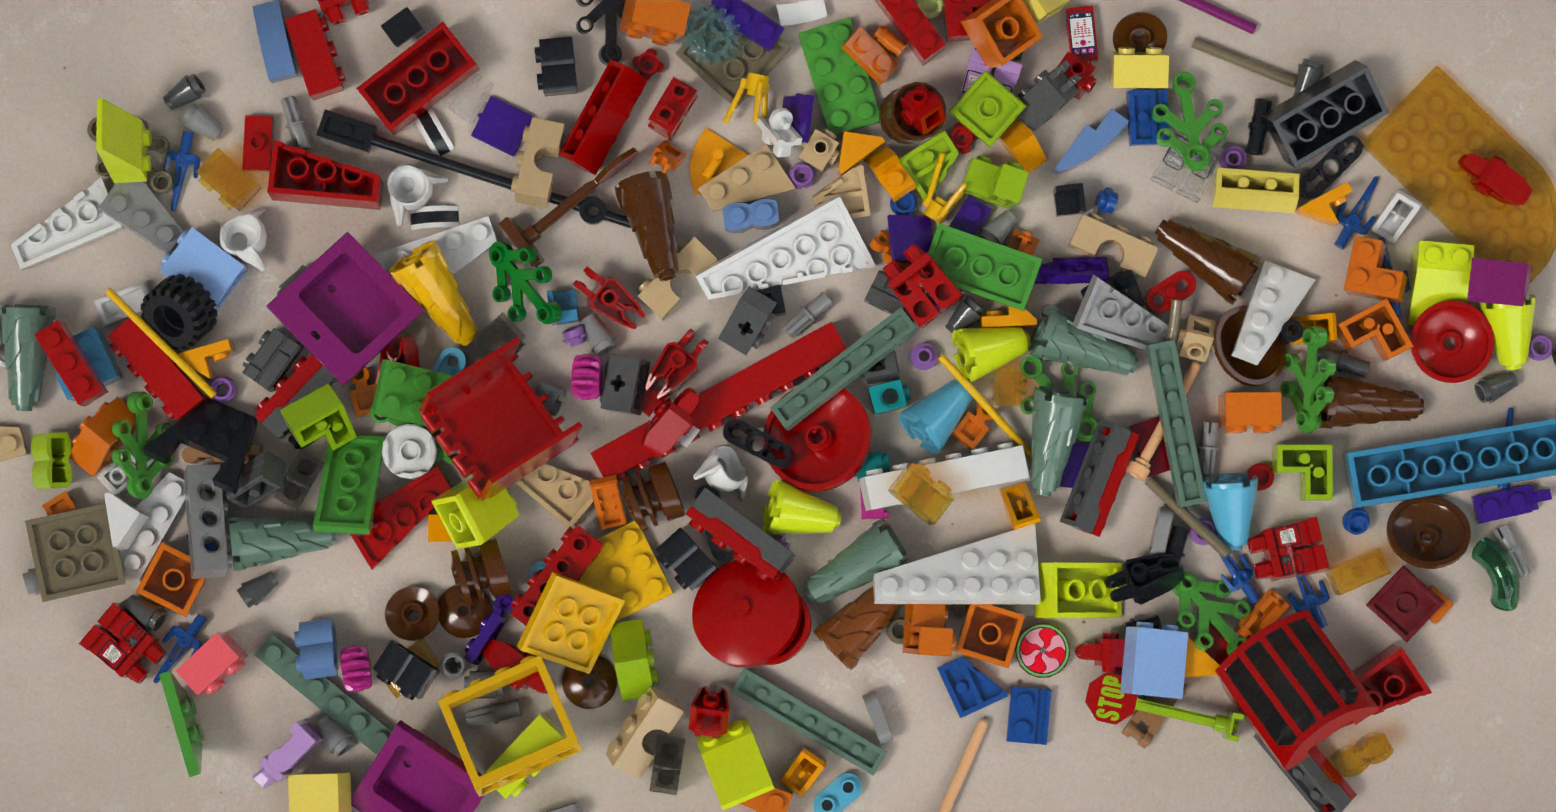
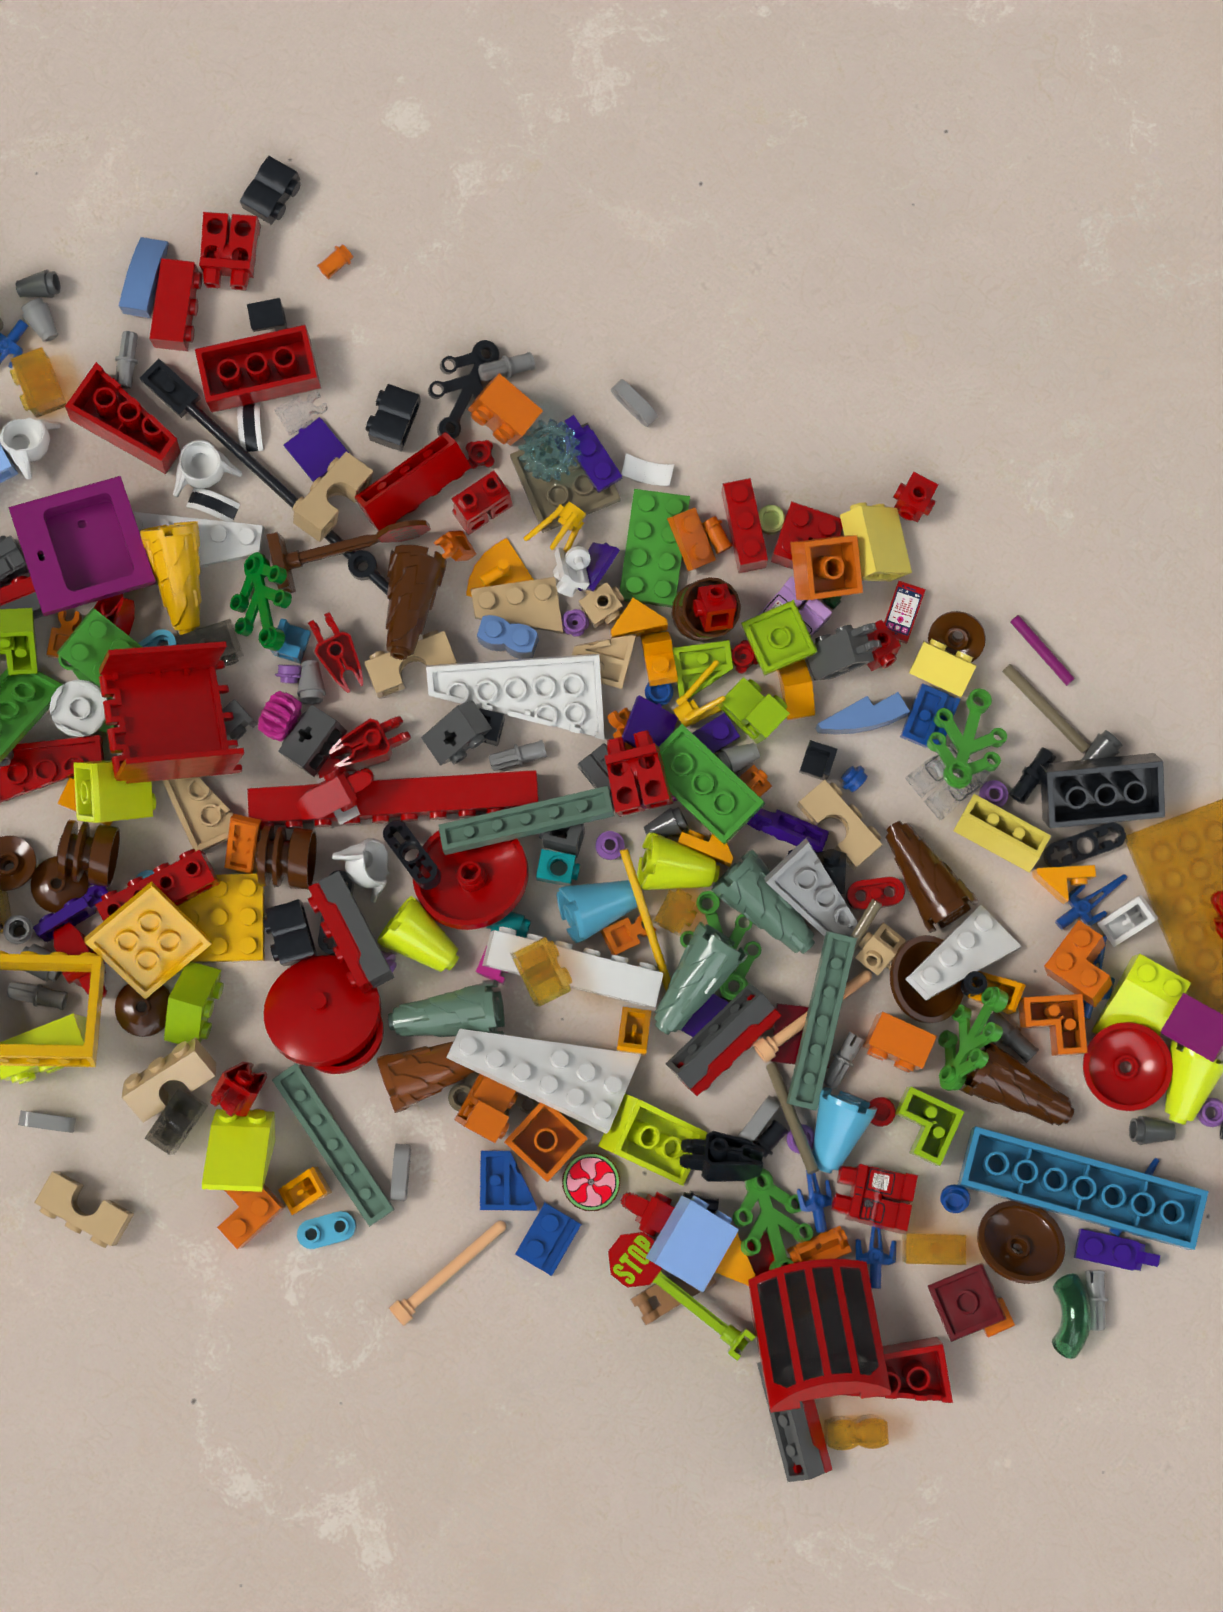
camera: 25 degrees right, 5 degrees down
(257, 143) = (81, 360): red plate -> none

